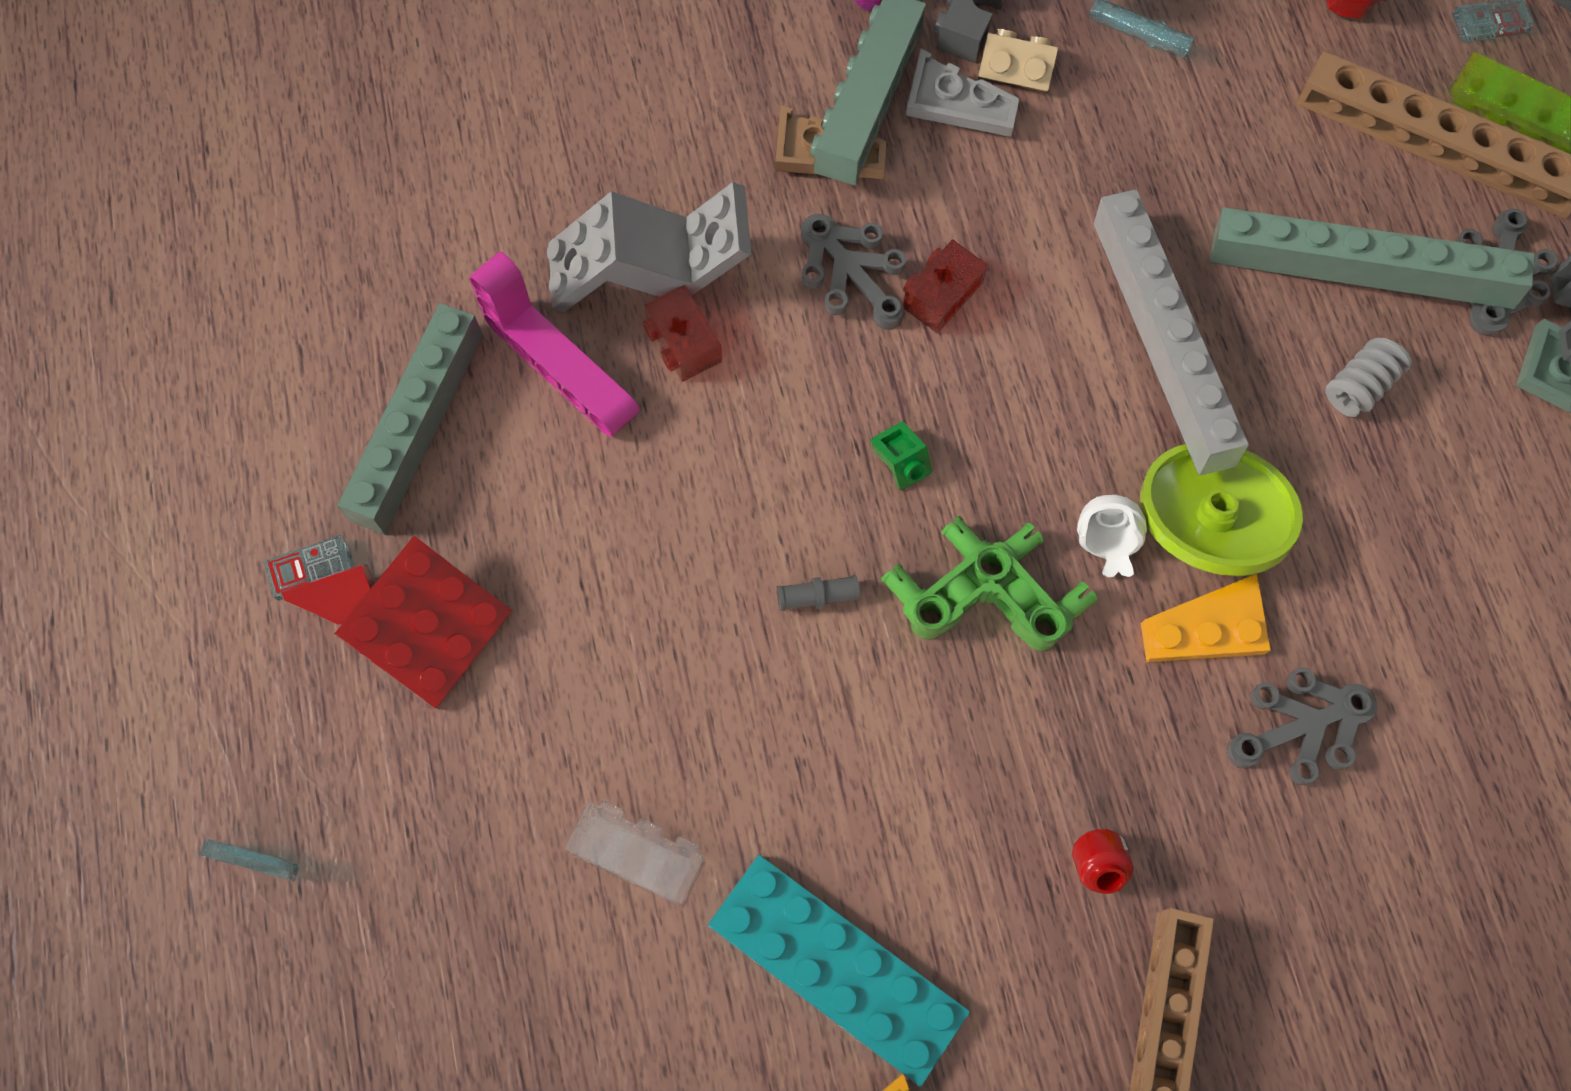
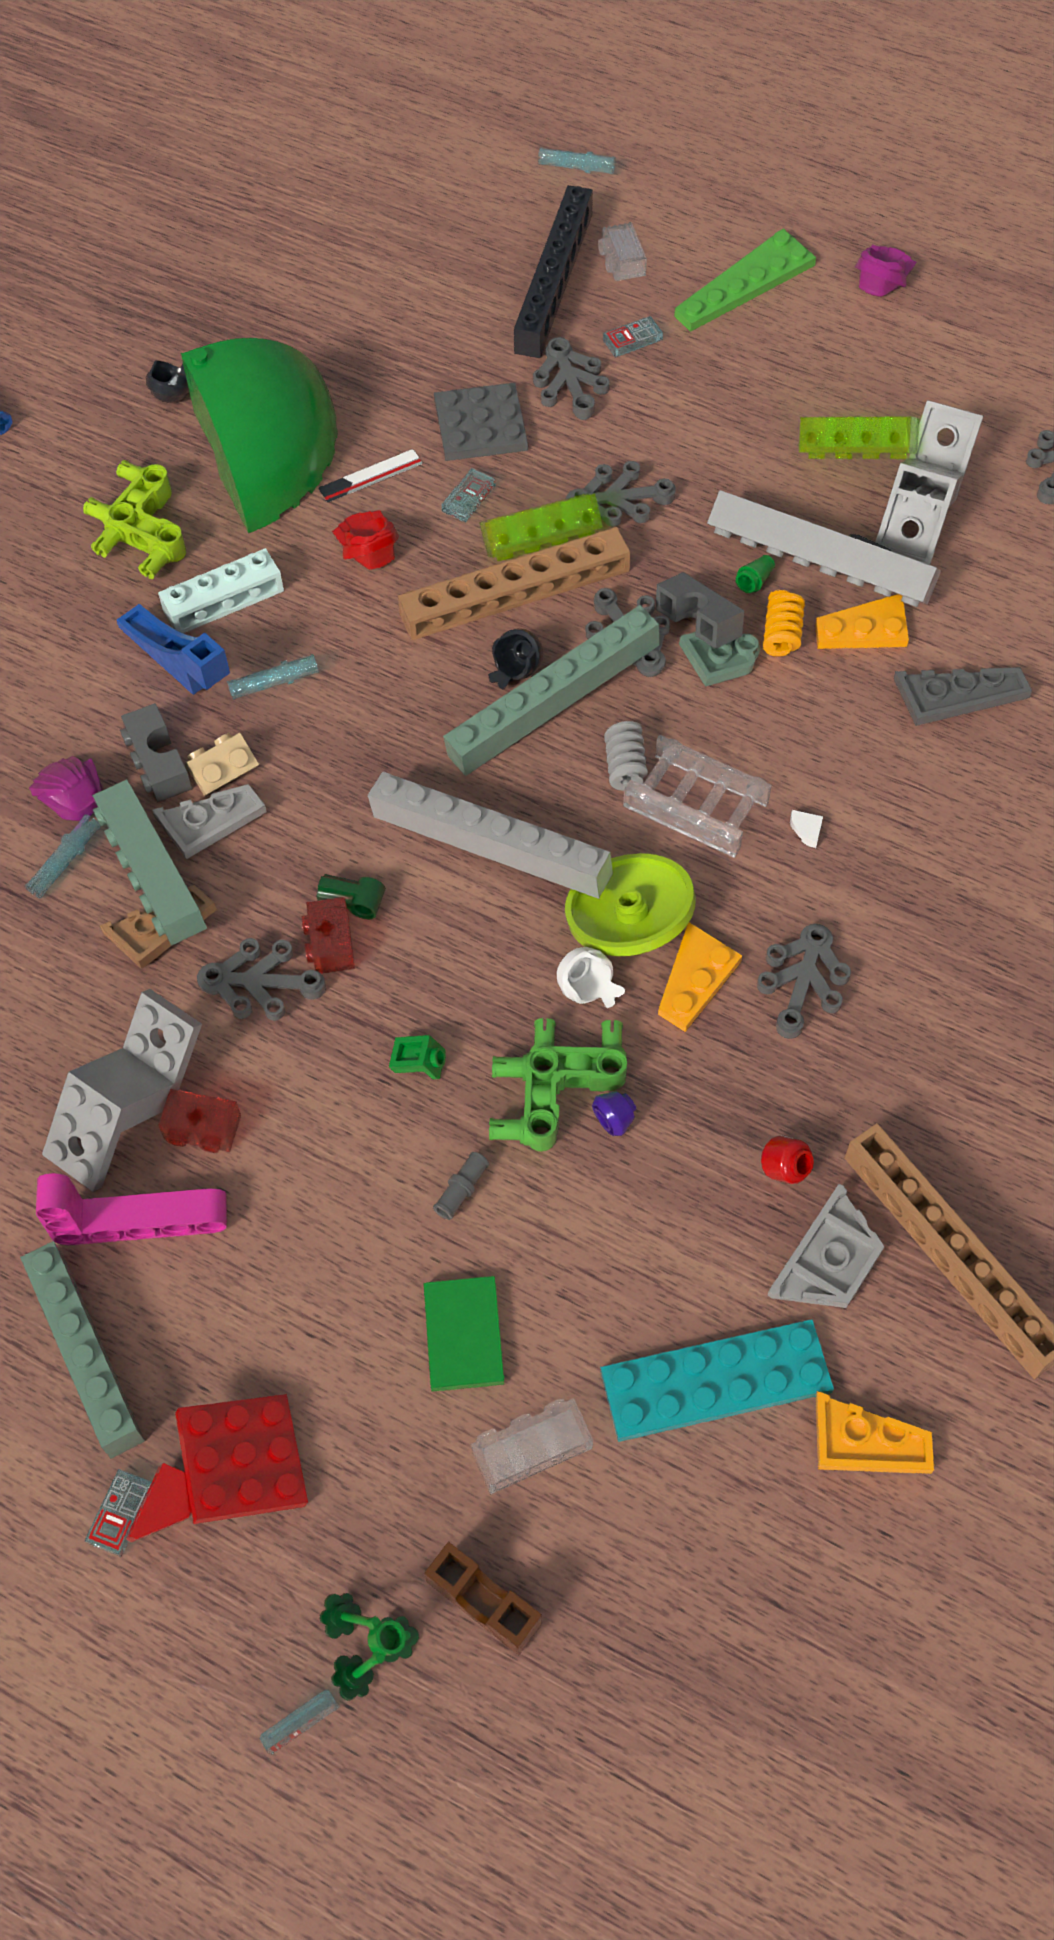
camera: 45 degrees left, 10 degrees down
(355, 874) = (385, 1639): none -> dark green plant
(468, 909) = (481, 1599): none -> reddish brown arch
(689, 710) = (463, 1334): none -> green tile
(817, 22) = (71, 845): none -> clear light blue pin
(1004, 277) = (361, 896): none -> dark green piece
(1006, 665) = (614, 1112): none -> dark purple cone
(1047, 980) = (830, 1257): none -> light grey wing
(1366, 498) = (684, 819): none -> clear fence
(1369, 198) = (516, 656): none -> black hat
(1464, 599) = (806, 826): none -> white tile

